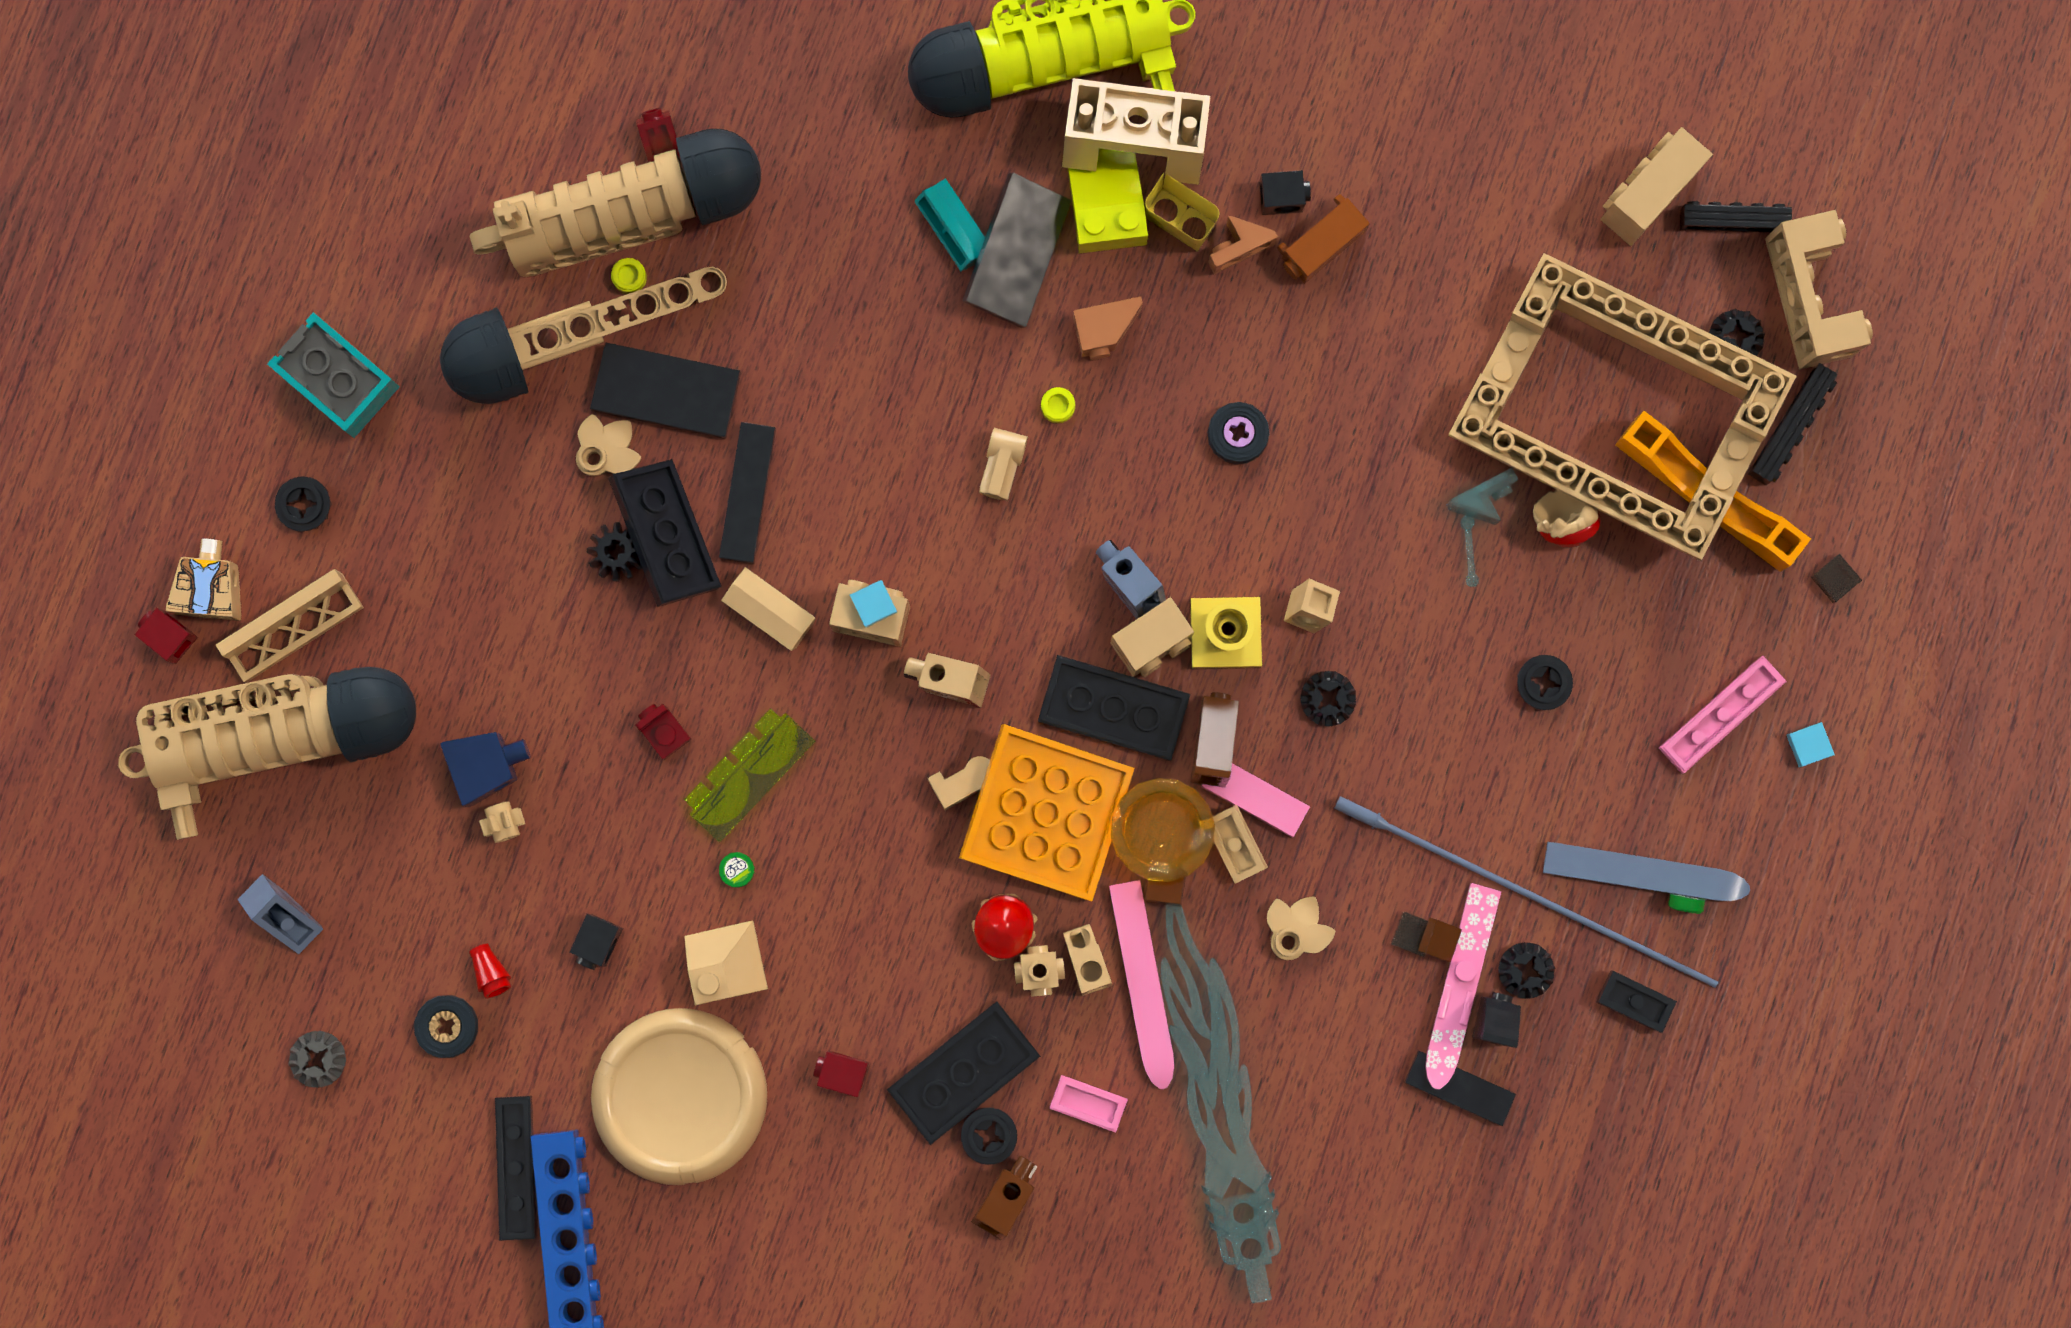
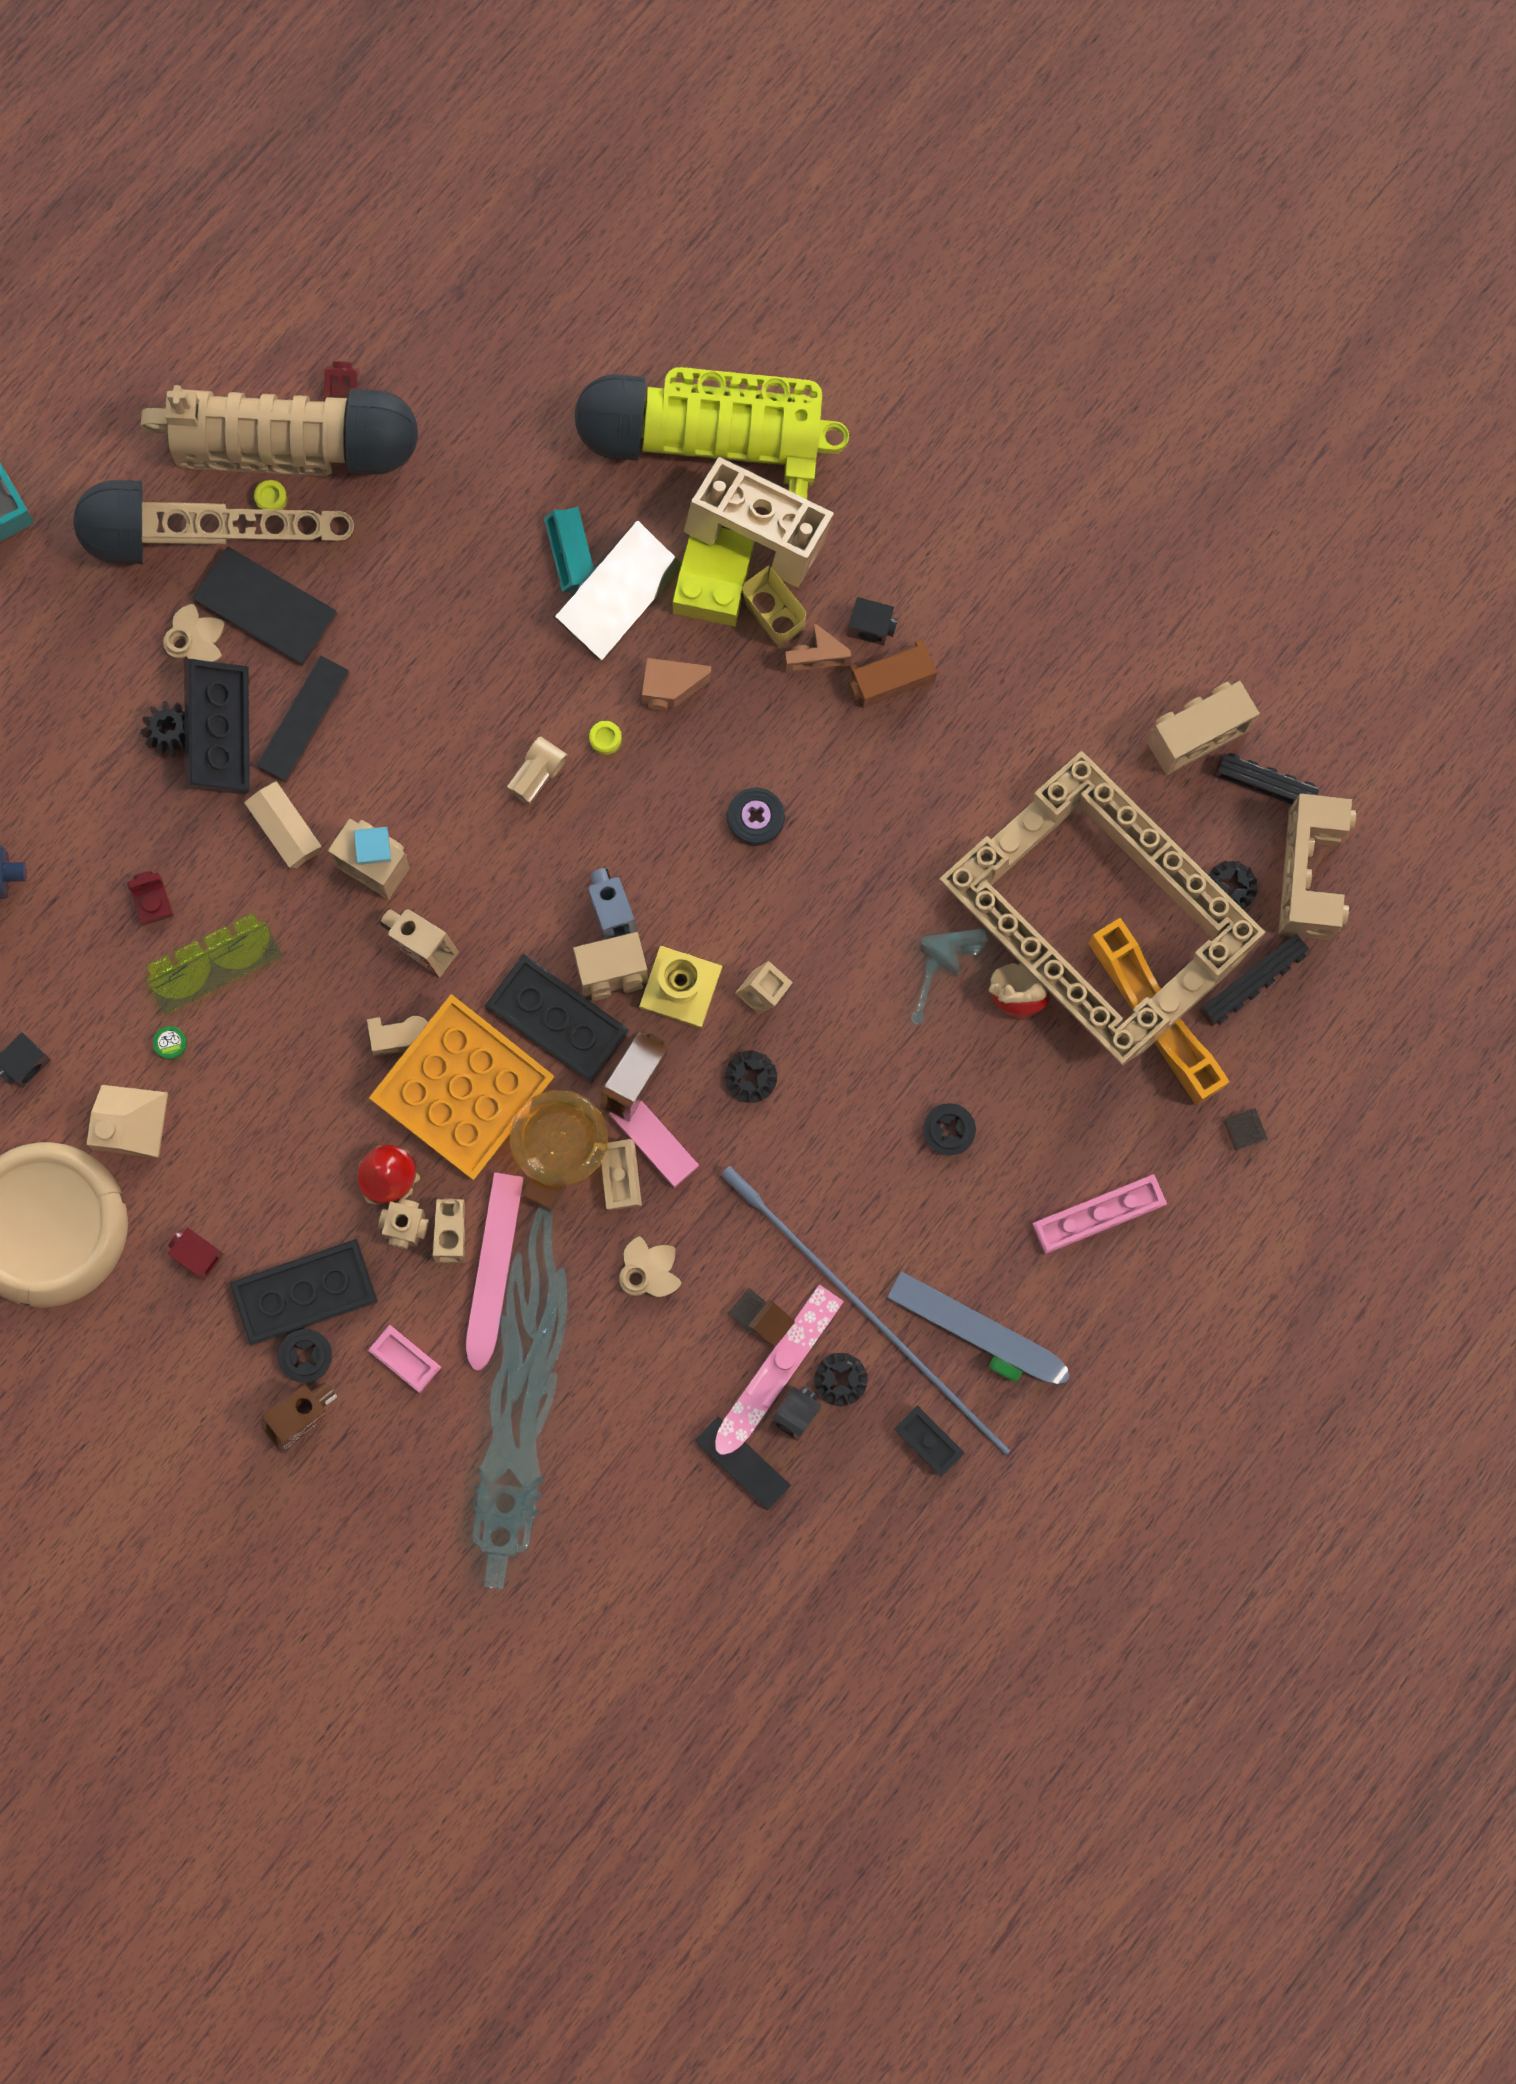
camera: 15 degrees right, 5 degrees down
(1810, 744) = (1169, 1268): medium azure tile -> none

